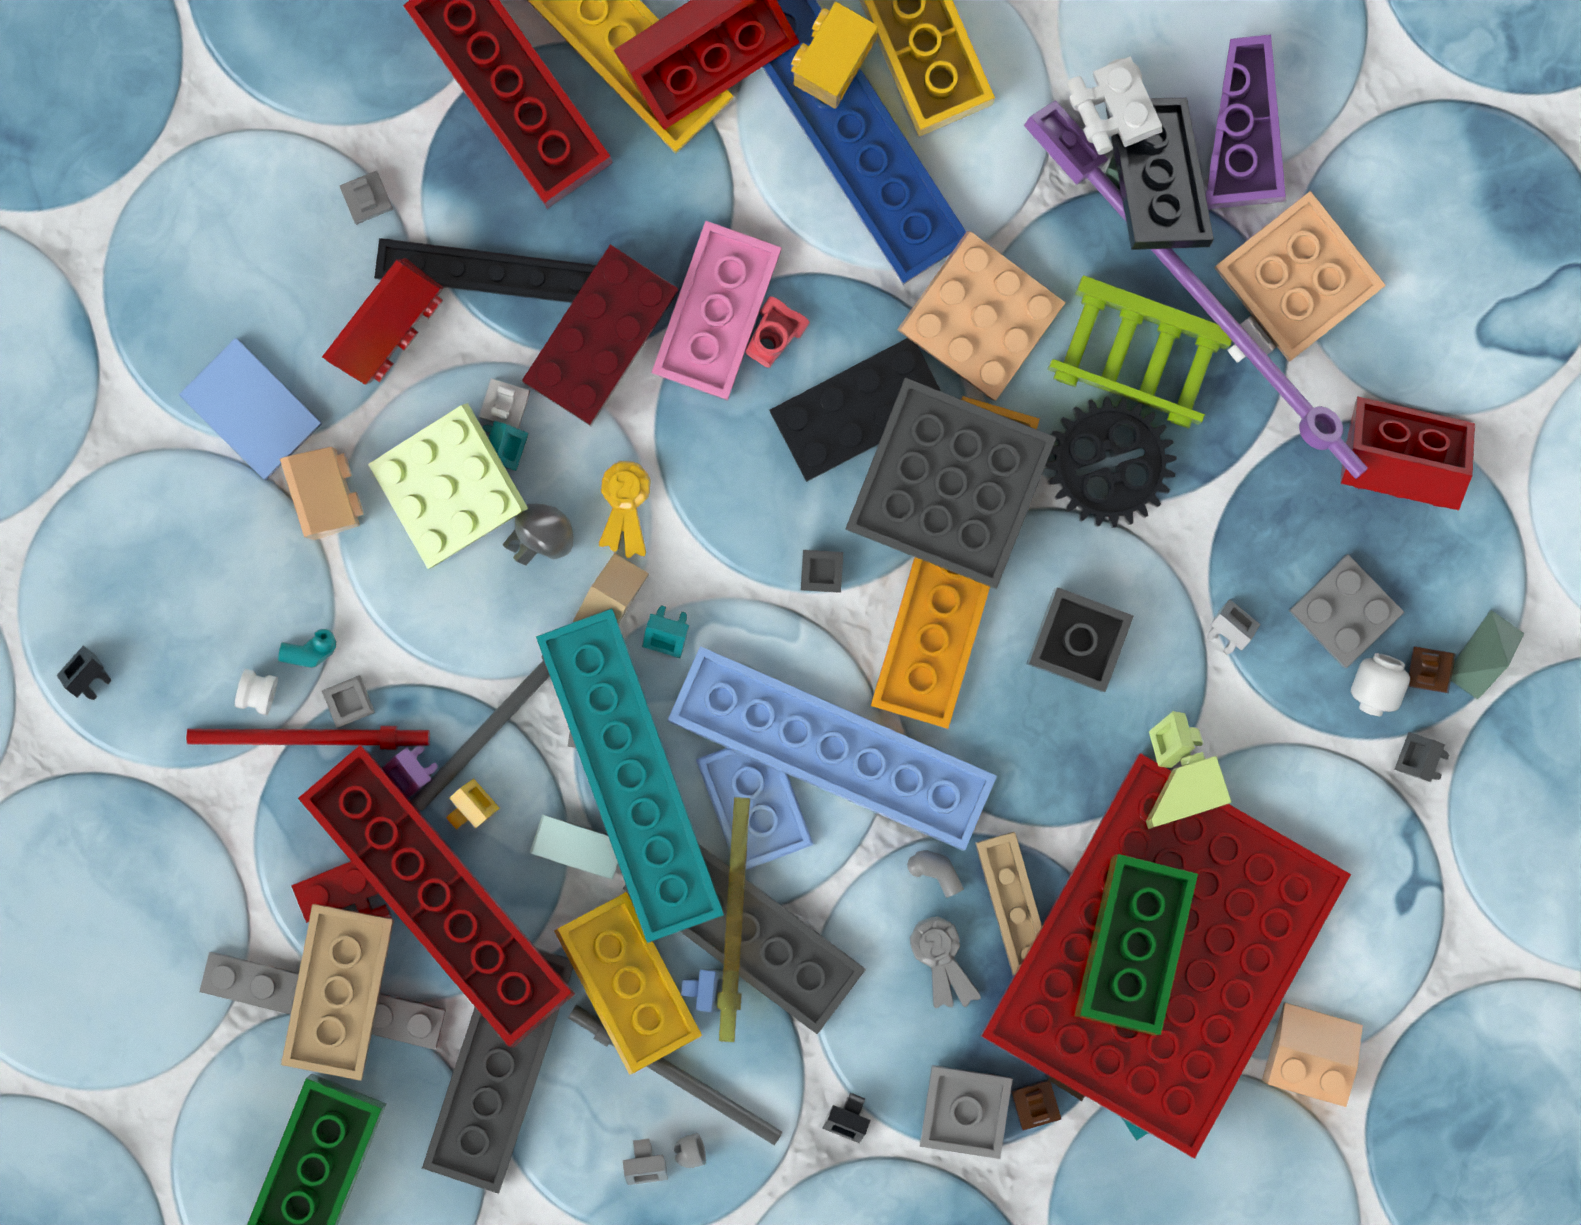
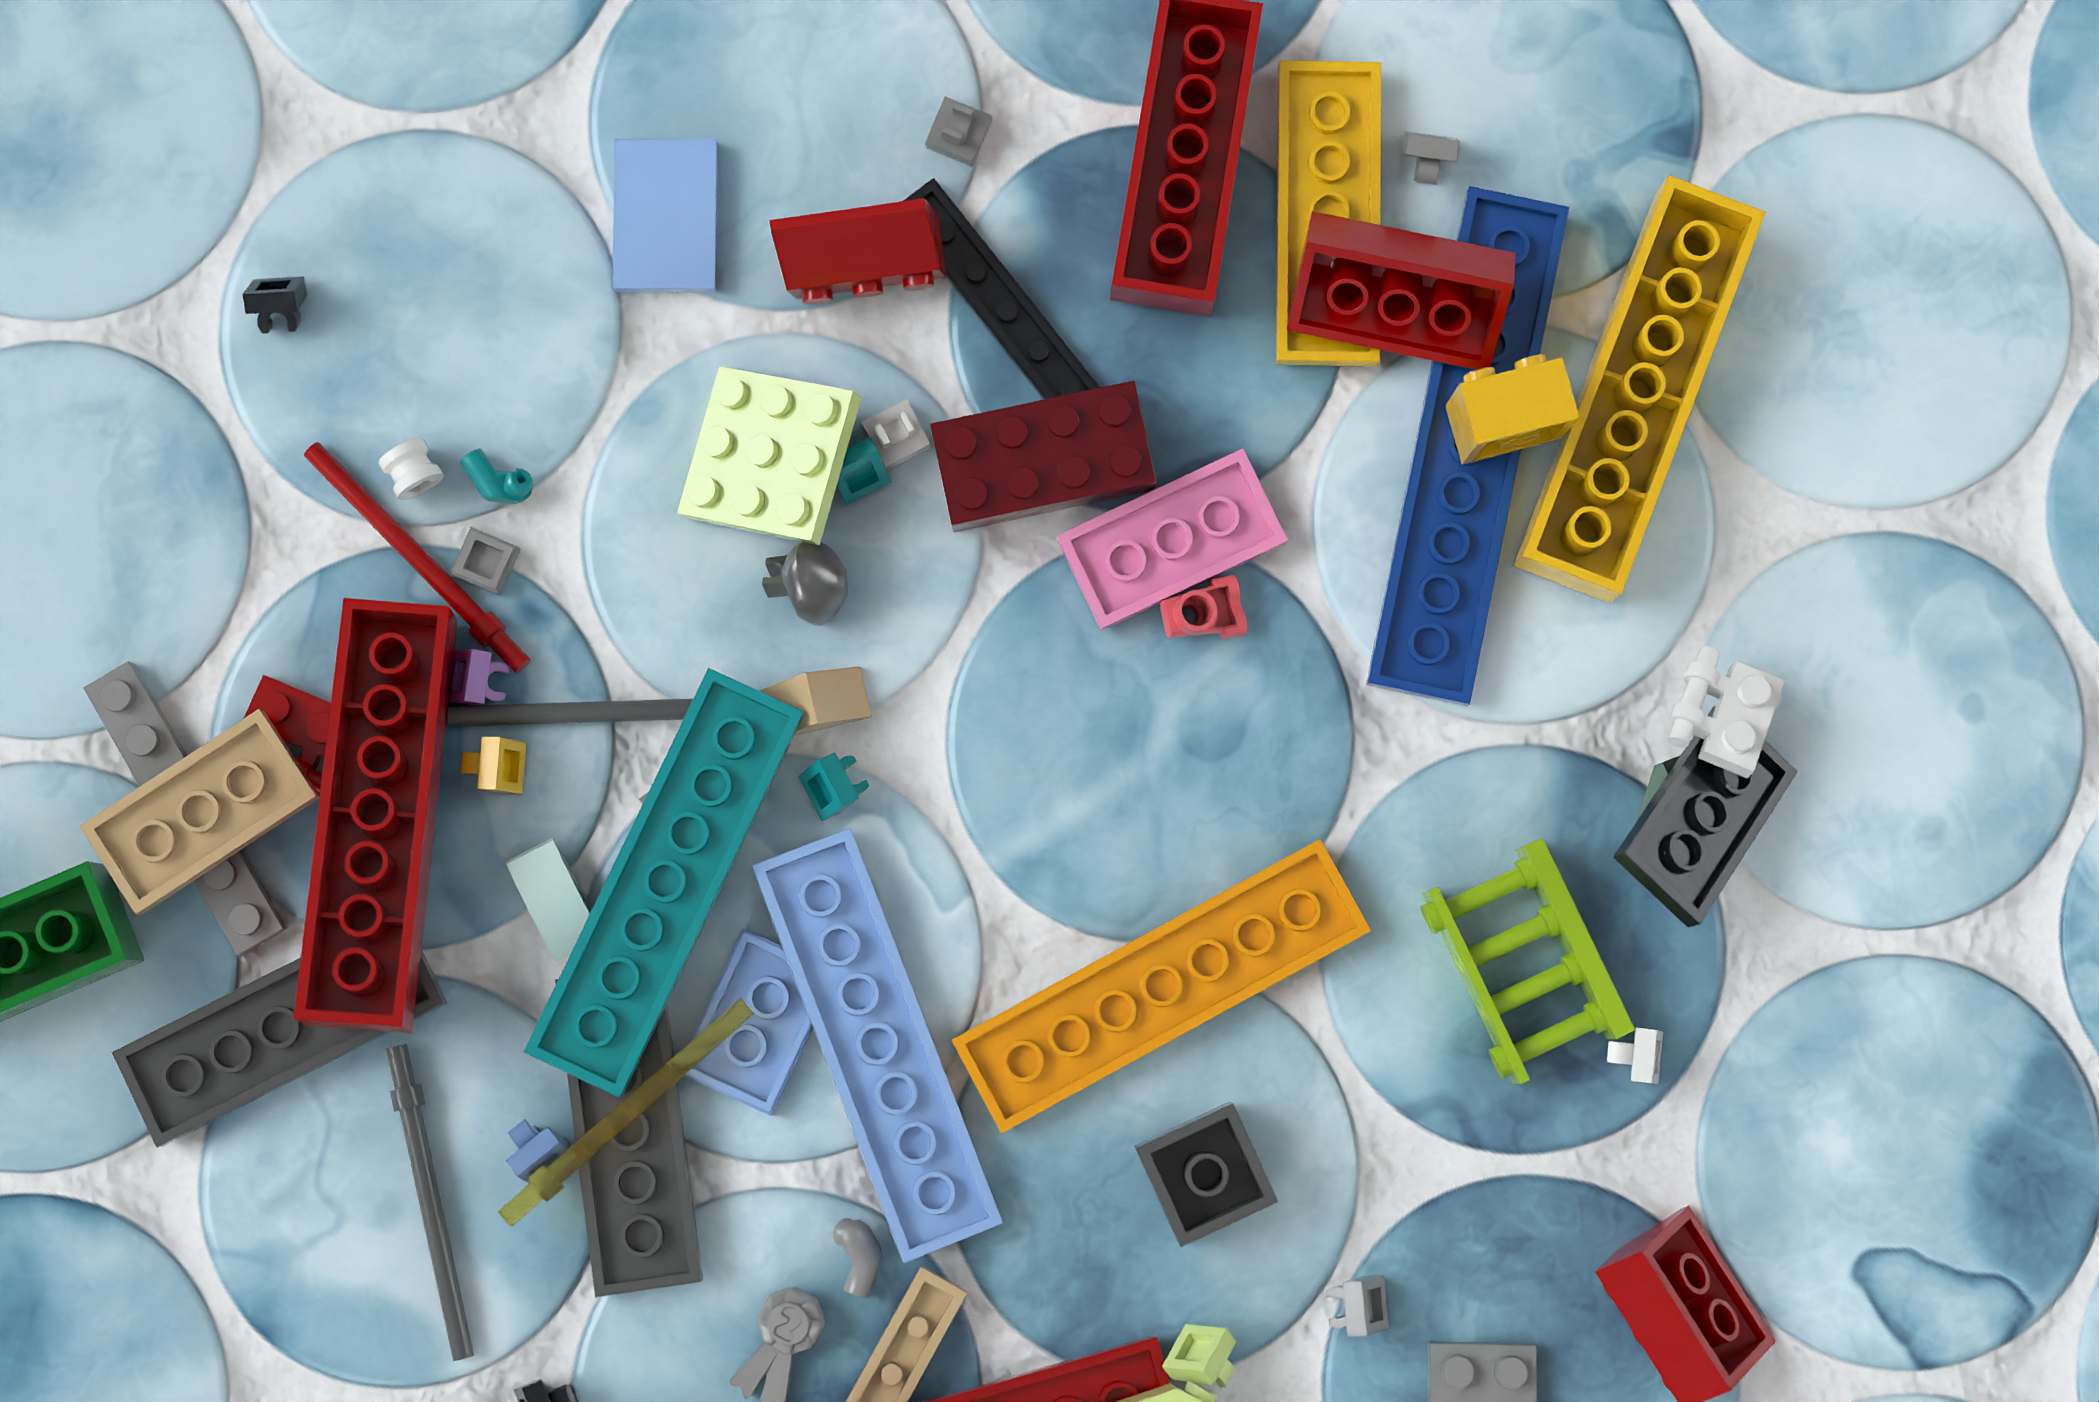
camera: 40 degrees right, 5 degrees down
(321, 492) = (649, 347): light nougat slope -> none
(625, 489) = (927, 617): yellow piece -> none
(627, 983) = (469, 1073): yellow plate -> none
(645, 1166) = (315, 1258): light grey tile -> none
(690, 1151) = (371, 1288): light grey hinge -> none
(821, 571) = (1030, 871): dark grey plate -> none
(848, 409) = (1213, 757): black plate -> none
(950, 483) = (1229, 908): dark grey plate -> none
(981, 315) = (1410, 783): light nougat plate -> none
(1080, 160) = (1644, 731): medium lavender bar -> none
(1098, 427) = (1377, 1079): black gear -> none
(1247, 142) = (1818, 866): medium lavender wedge -> none
(1299, 276) = (1743, 1039): light nougat plate -> none

